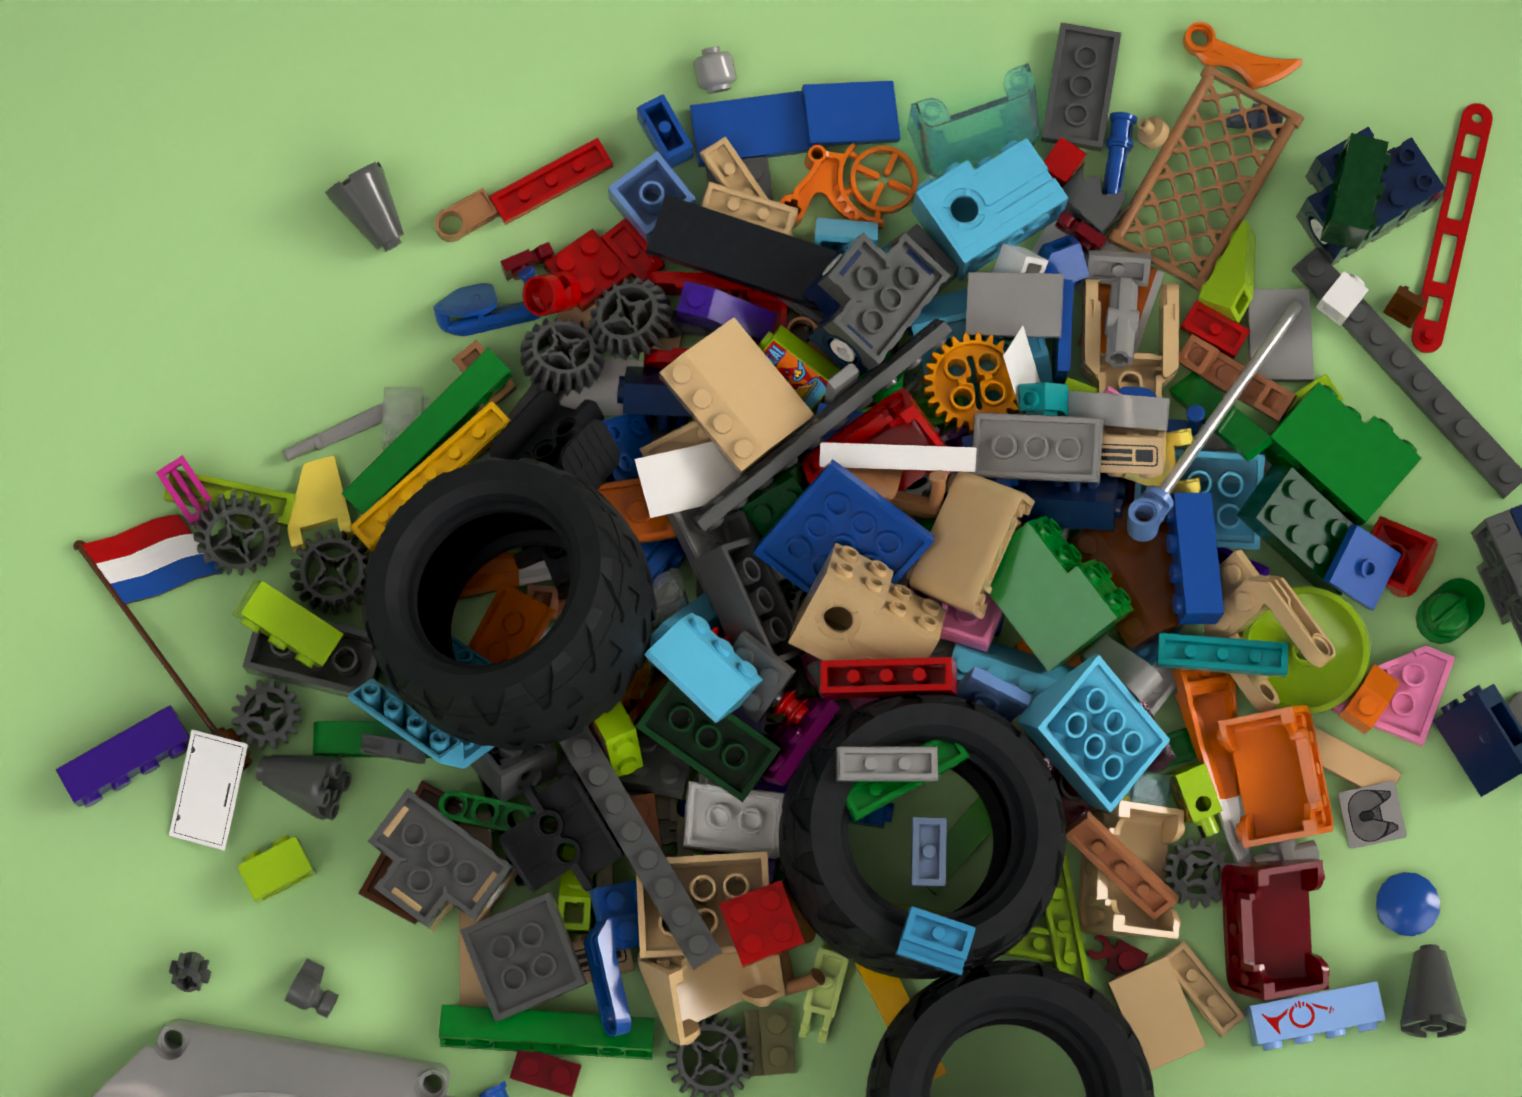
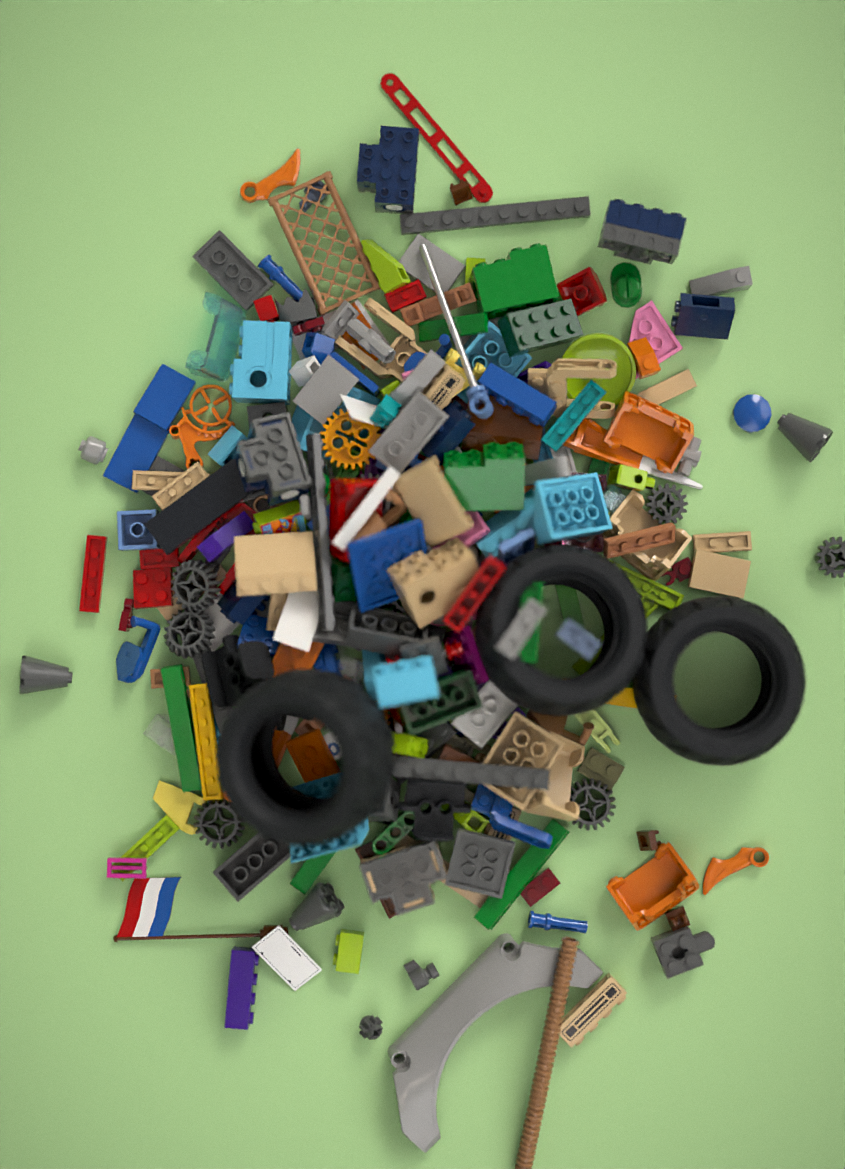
camera: 45 degrees left, 10 degrees up
(215, 545) = (164, 852): dark grey gear -> none
(280, 710) = (260, 900): dark grey gear -> none
(287, 624) = (233, 868): lime wedge -> none
(341, 431) = (151, 756): light grey piece -> none
(391, 749) = (327, 860): dark grey piece -> none
(472, 211) = (81, 624): medium nougat piece -> none
(551, 293) = (154, 616): red wheel -> none
(664, 131) = (108, 499): blue brick -> none
(761, 923) = (549, 740): red plate -> none
(935, 940) = (624, 667): dark azure plate -> none
(1153, 132) = (282, 251): tan tile -> none
(1271, 928) = (720, 490): dark red windscreen -> none
(1315, 1014) = (773, 497): light blue brick -> none
(1342, 297) = (436, 221): white brick -> none
(1355, 191) = (391, 176): dark green brick -> none
(1362, 567) = (578, 314): blue plate -> none
(1372, 814) = (697, 398): sticker -> none

